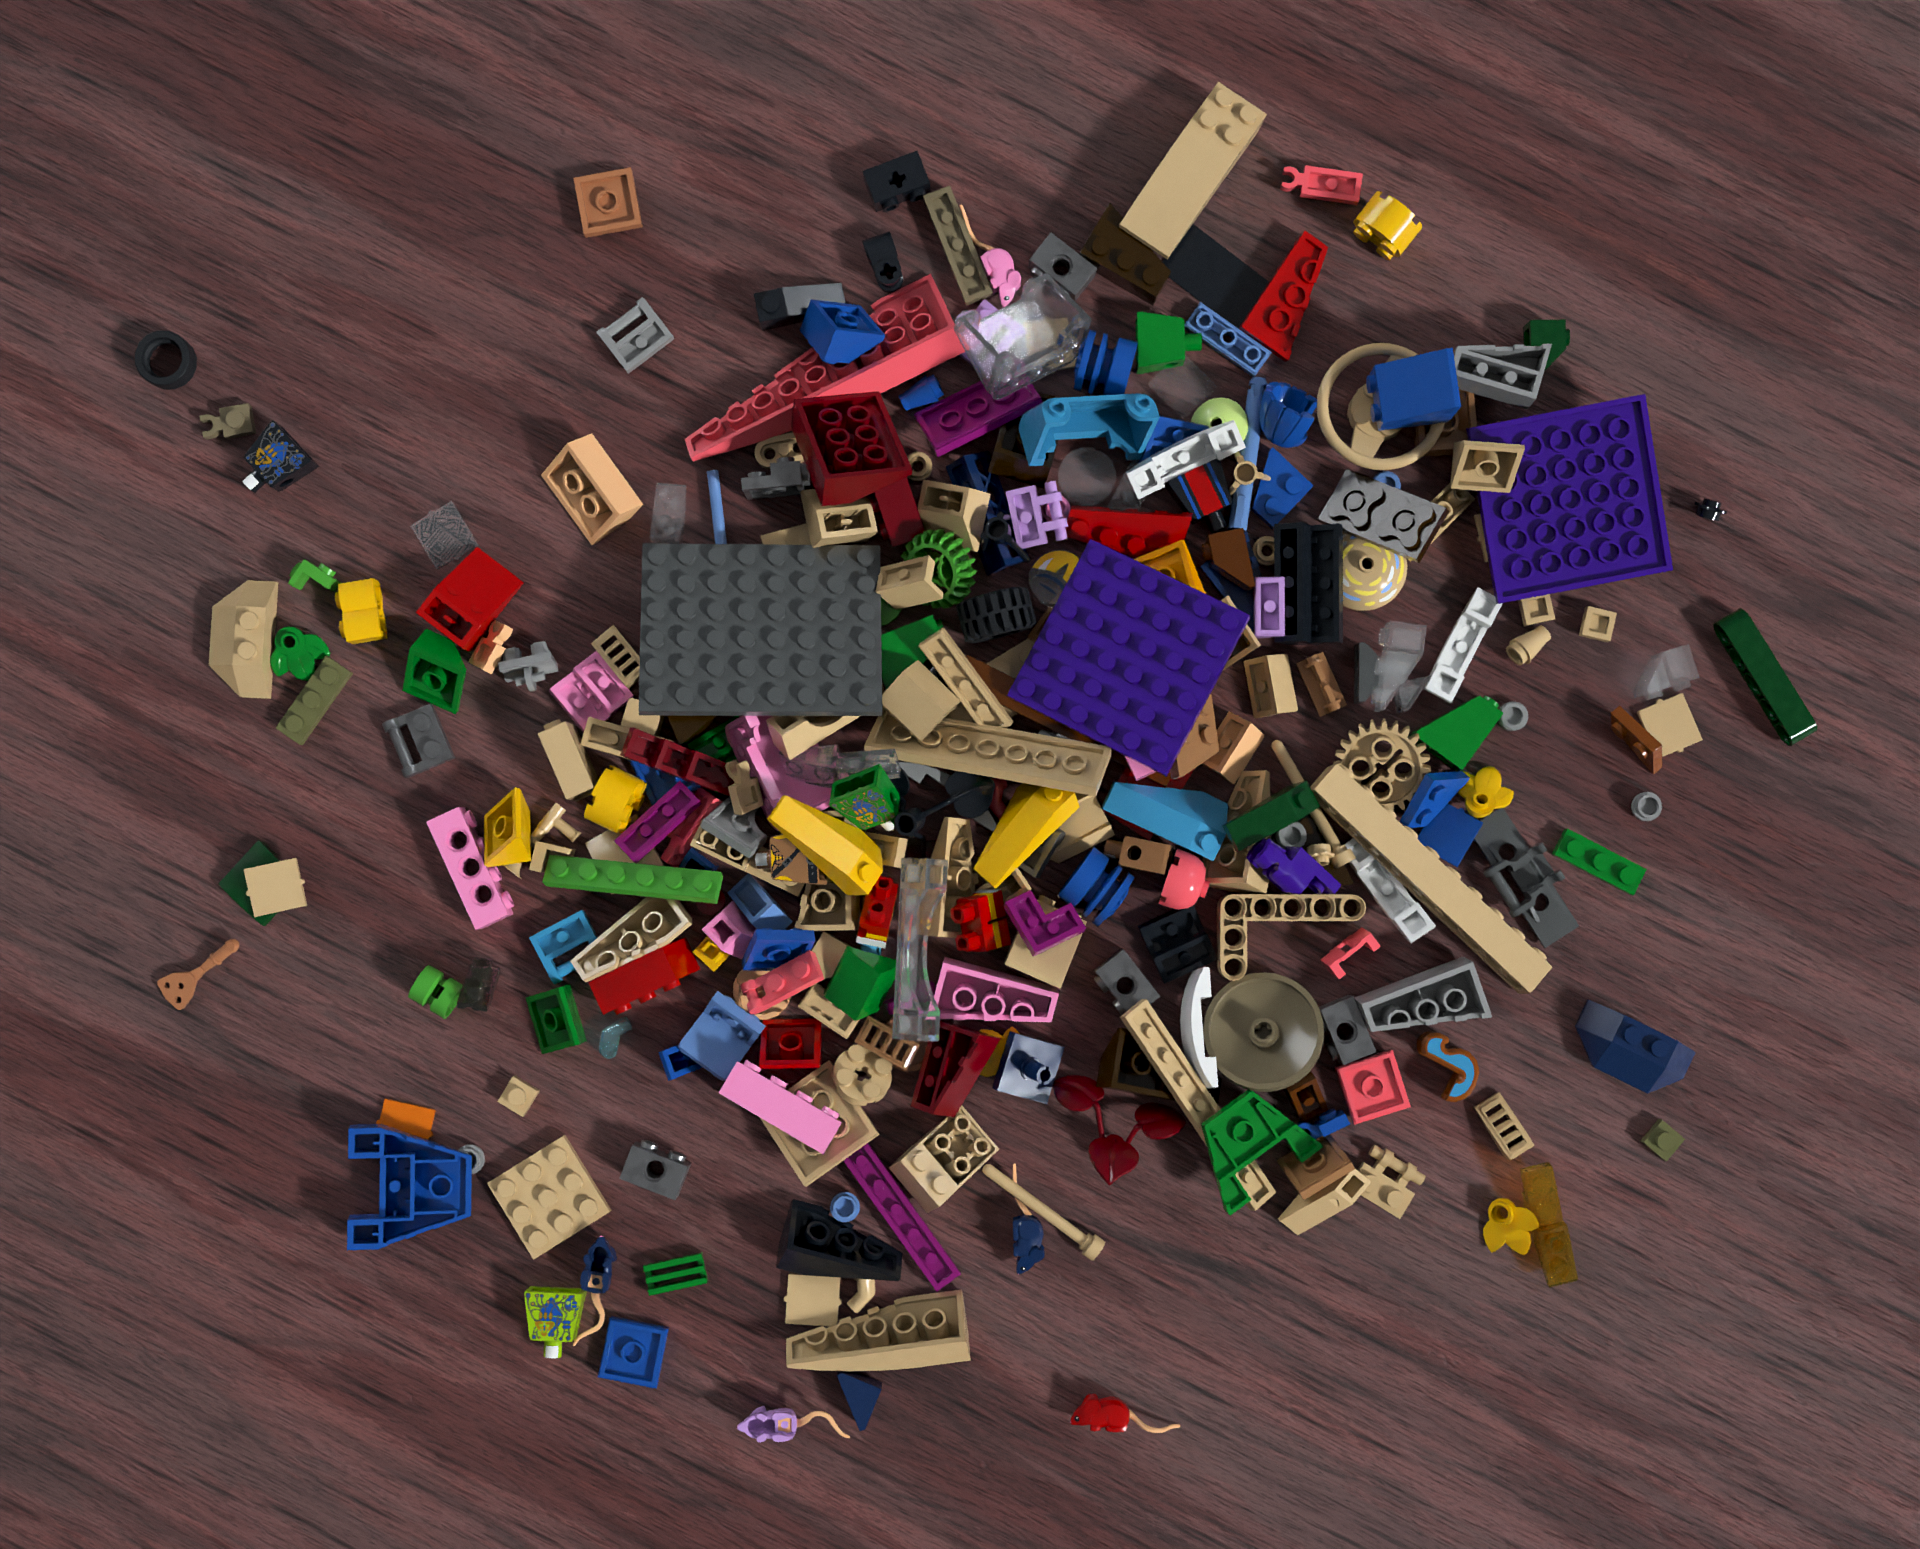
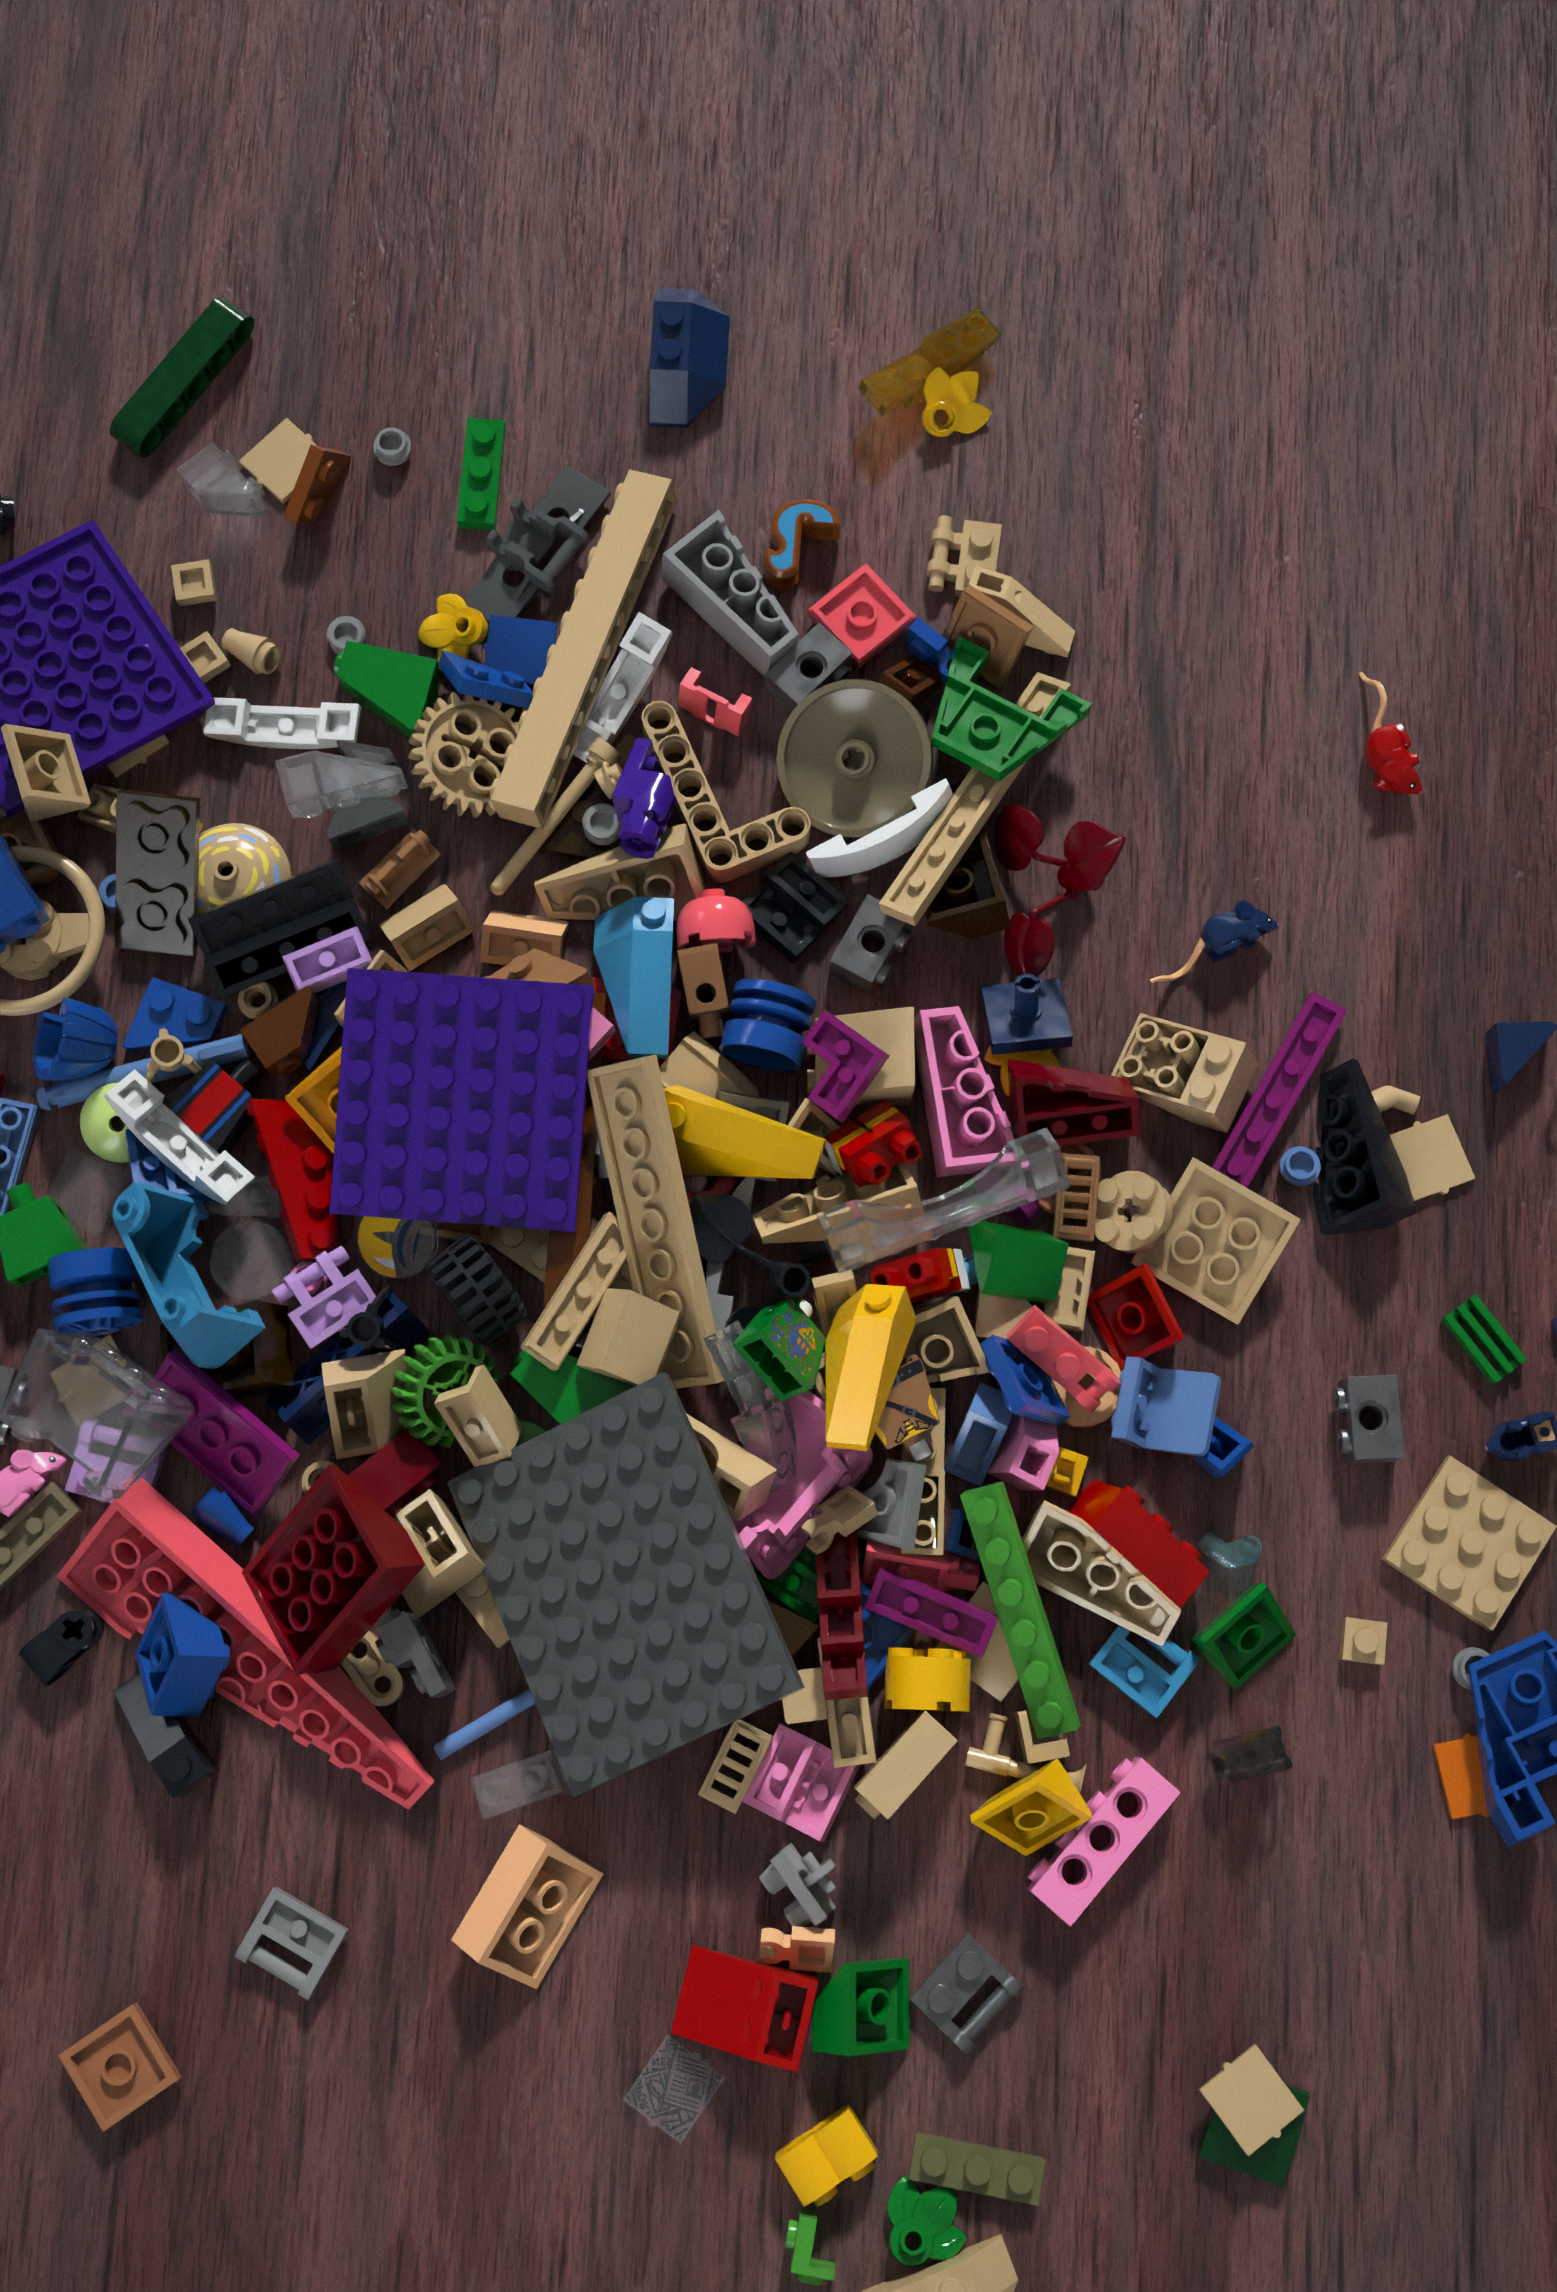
camera: 110 degrees left, 10 degrees down
(190, 979) = (1425, 2164): nougat piece -> none
(428, 985) = (1281, 1825): bright green wheel -> none
(780, 1107) = (1219, 1288): bright pink wedge -> none
(900, 1336) = (1423, 1035): tan wedge -> none
(1089, 1244) = (1202, 856): tan piece -> none
(1271, 815) = (586, 849): dark green slope -> none
(1518, 1148) = (853, 434): tan slope -> none
(1662, 1140) = (775, 284): olive plate -> none

